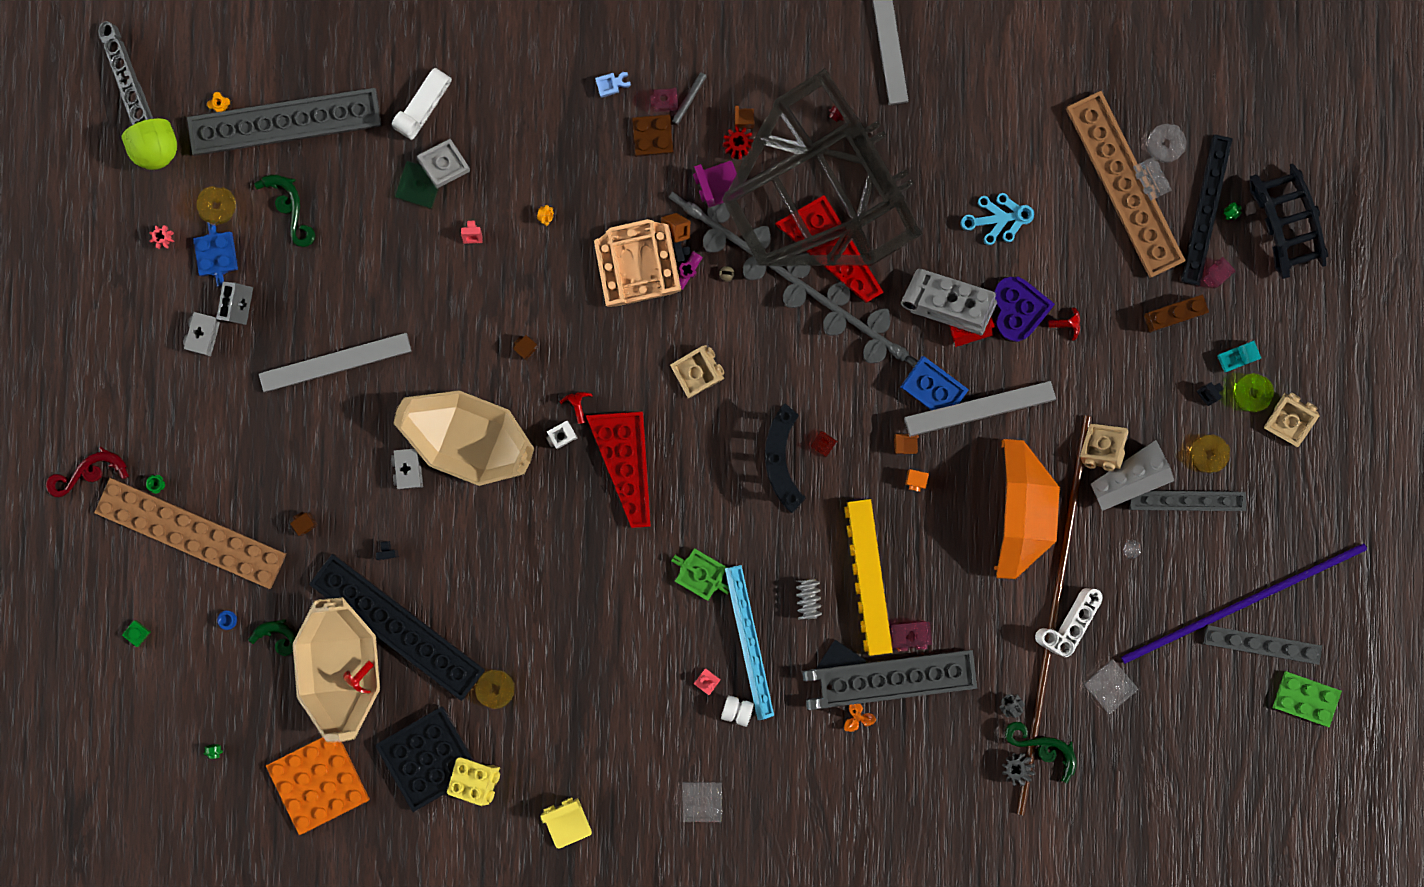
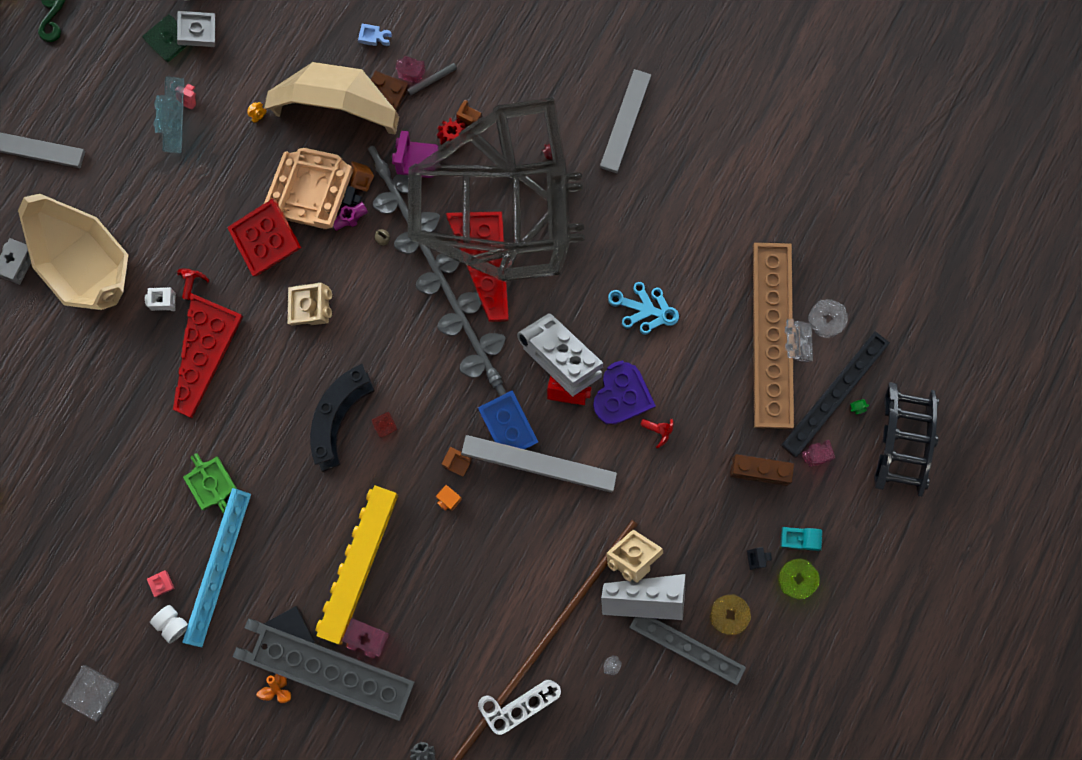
camera: 25 degrees right, 10 degrees down
(469, 260) = (170, 114): none -> clear light blue bracket
(525, 346) = (174, 210): reddish brown plate -> none
(612, 162) = (335, 89): none -> tan panel
(624, 331) = (264, 237): none -> red plate
(808, 599) = (291, 555): light grey piece -> none
(1029, 510) = (530, 576): orange panel -> none
(1292, 419) = (823, 621): tan plate -> none

